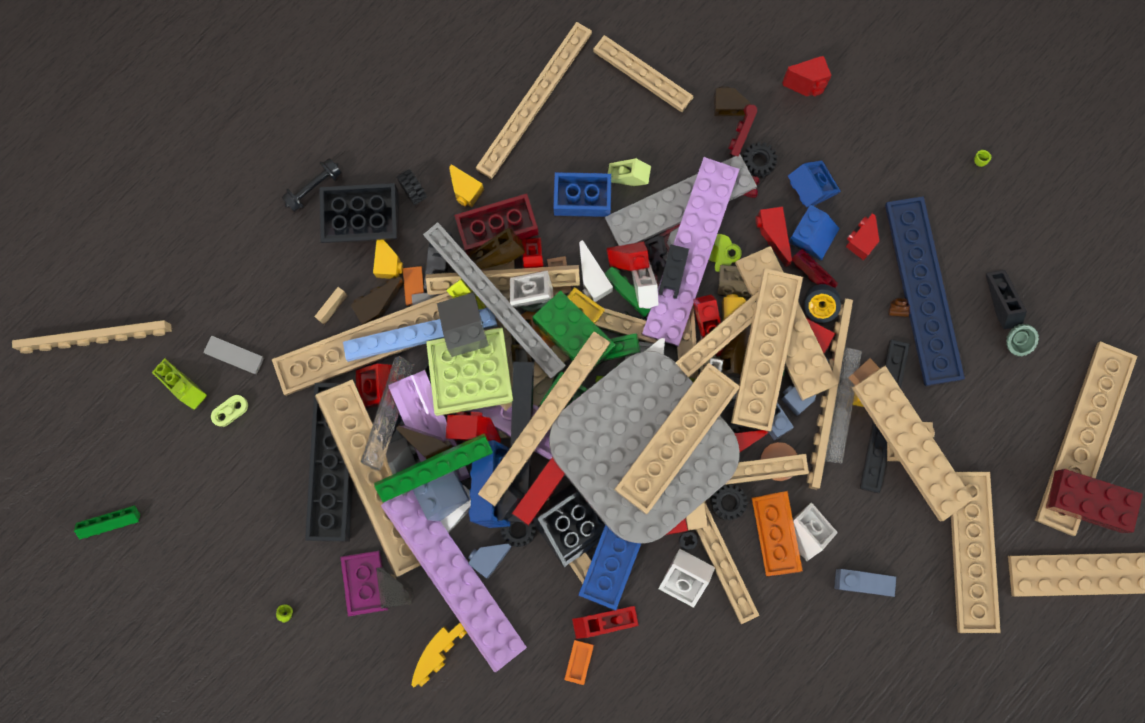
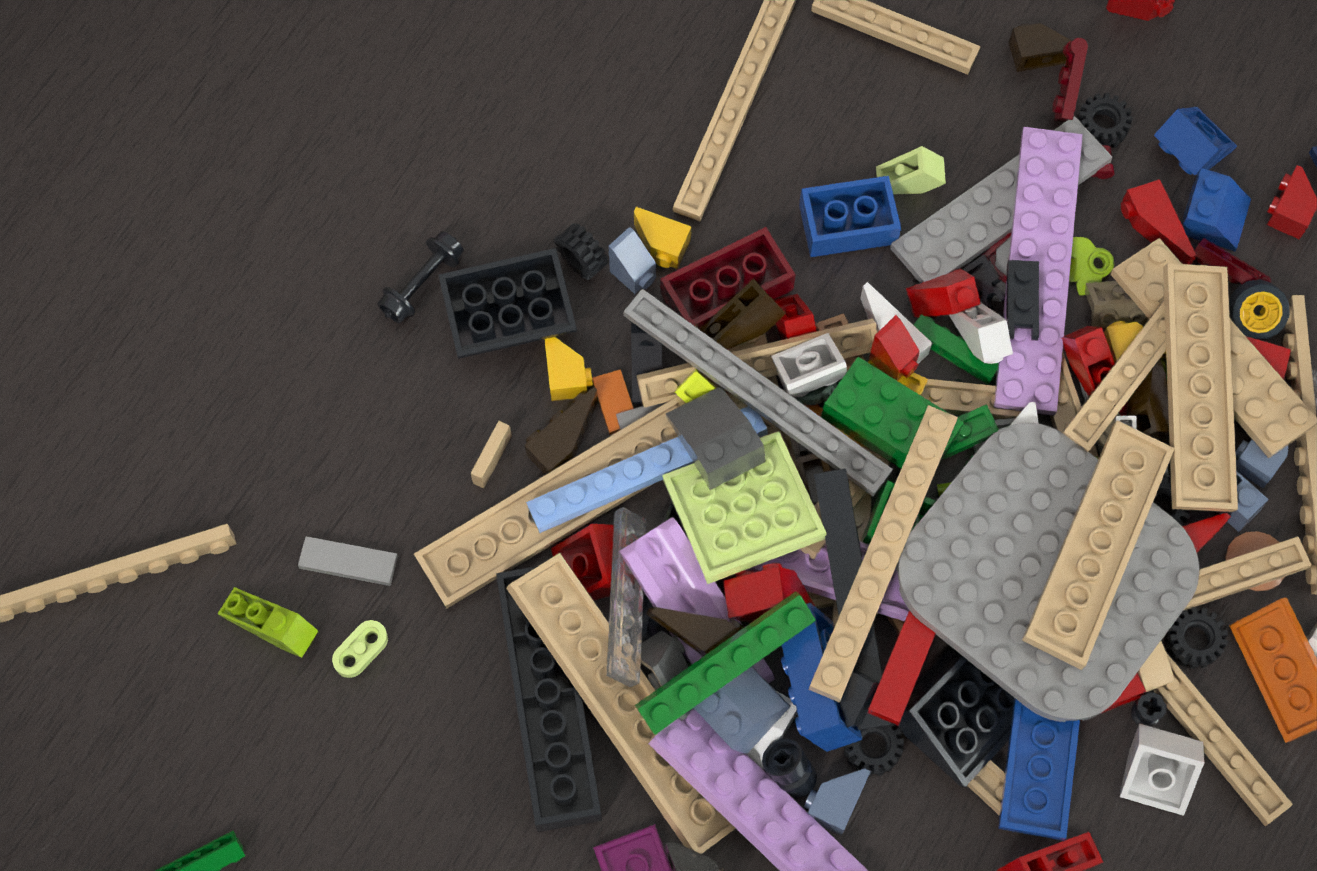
camera: 15 degrees left, 10 degrees down
(441, 199) = (631, 261): none -> slope
(463, 534) = (789, 767): none -> black wheel
(585, 290) = (894, 350): none -> red slope

